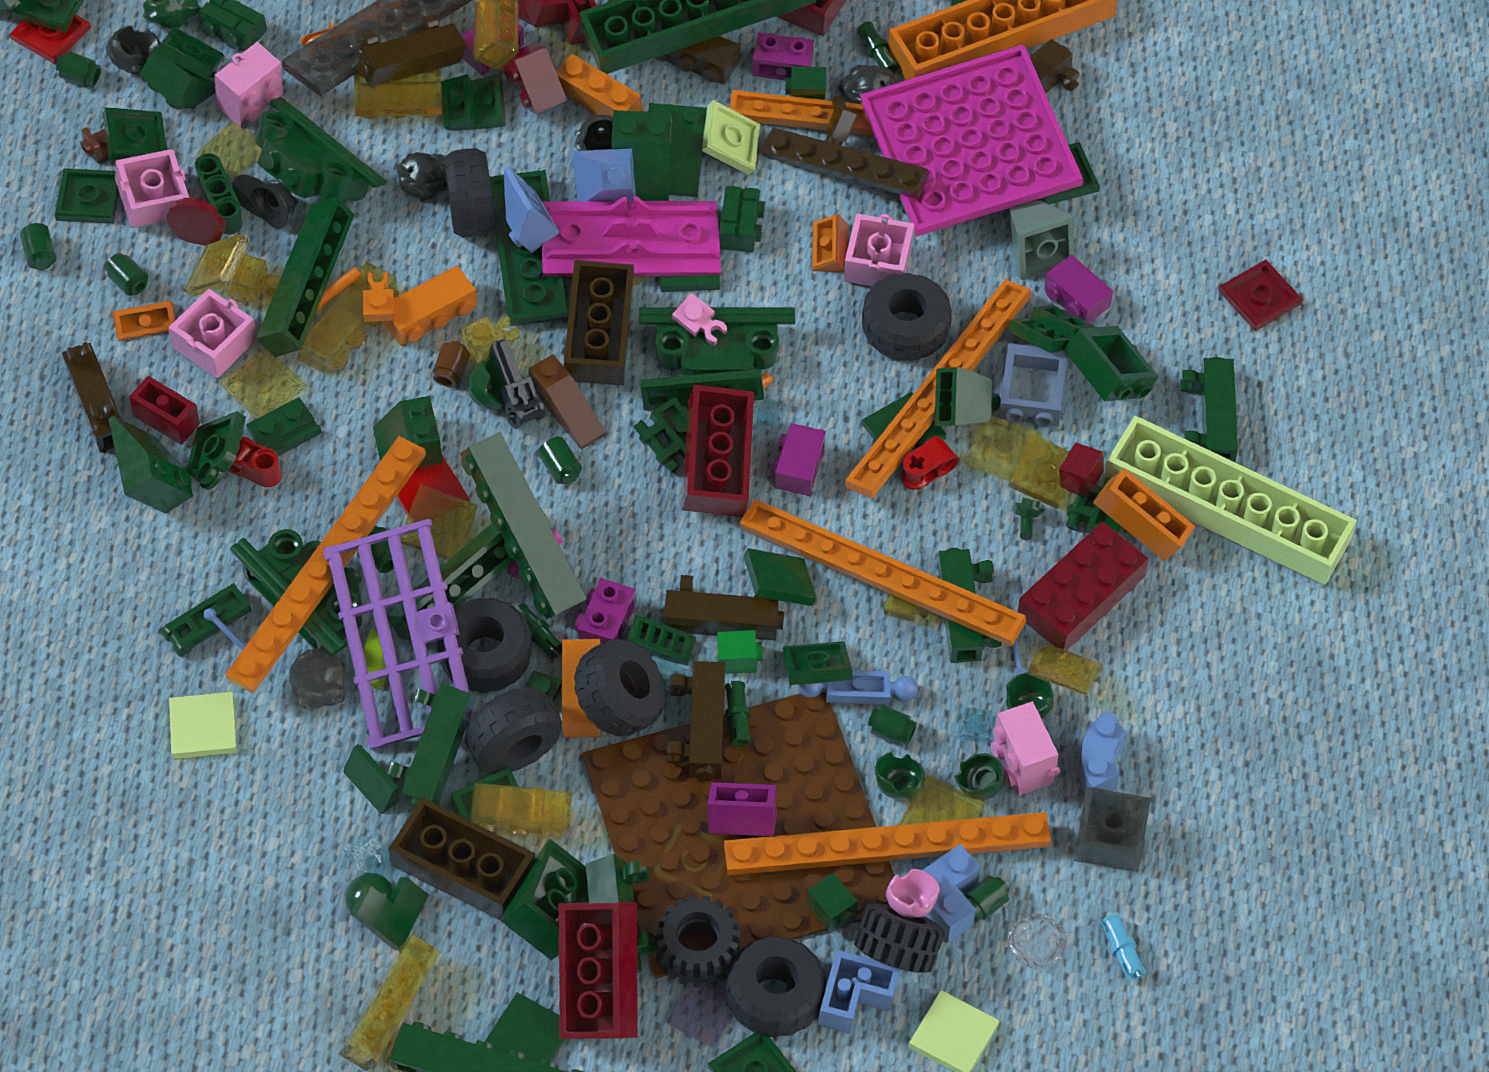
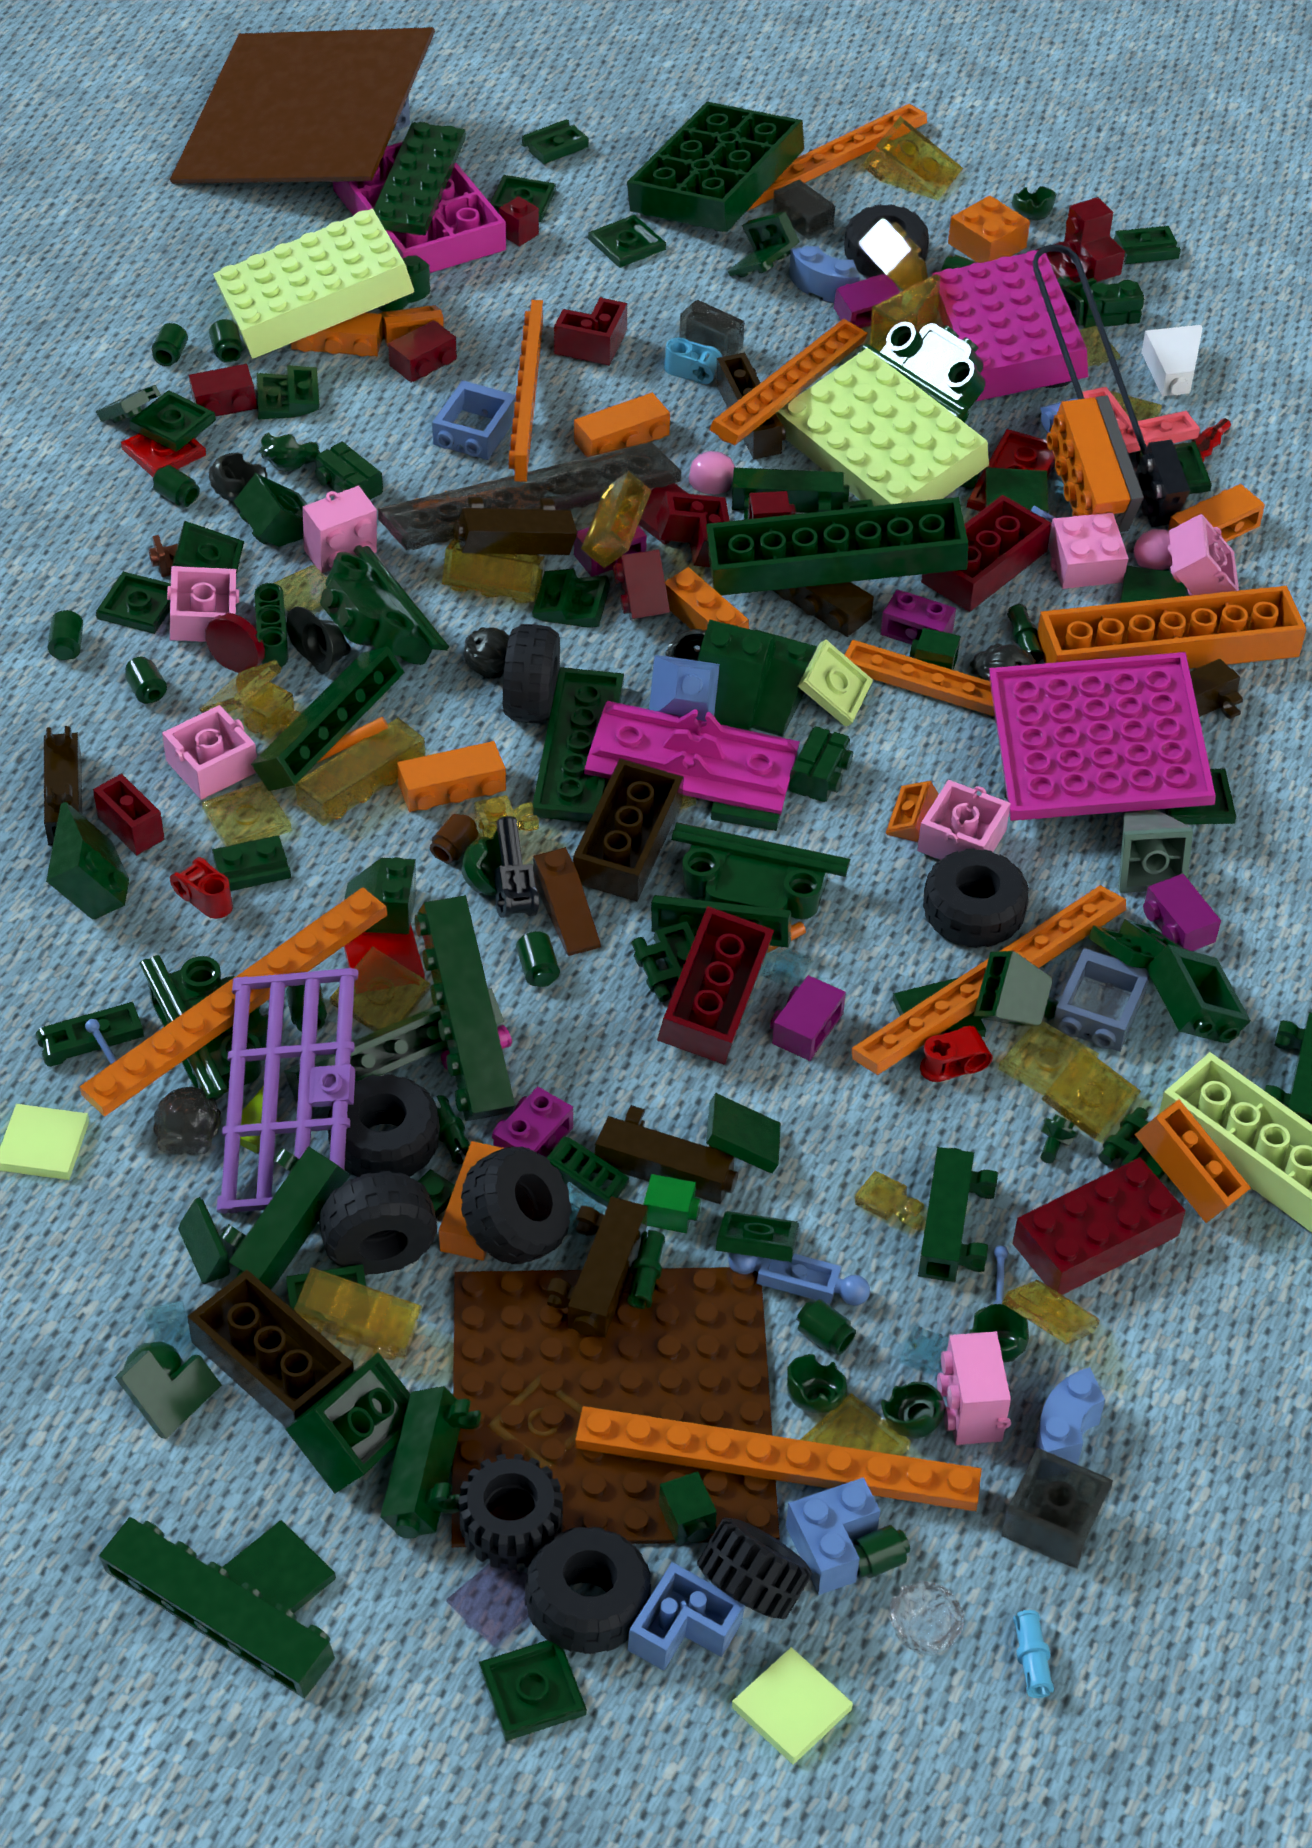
camera: 15 degrees right, 10 degrees down
(143, 320) = (143, 727): orange slope -> none
(190, 53) = (287, 487): dark green tile -> none
(215, 449) = (167, 862): dark green plate -> none
(378, 301) = (396, 757): orange plate -> none
(389, 1003) = (125, 1492): clear yellow brick -> none
(526, 213) = (584, 703): medium blue slope -> none
(598, 970) = (376, 1512): dark red brick -> none
(696, 317) = (737, 843): bright pink plate -> none
(742, 809) = (614, 1373): magenta brick -> none
(840, 122) = (955, 698): dark brown piece -> none
(845, 162) = (954, 731): dark brown plate -> none
(883, 572) = (868, 1157): orange plate -> none
(913, 894) = (785, 1519): bright pink hair -> none
(1081, 469) = (1131, 1097): dark red brick -> none

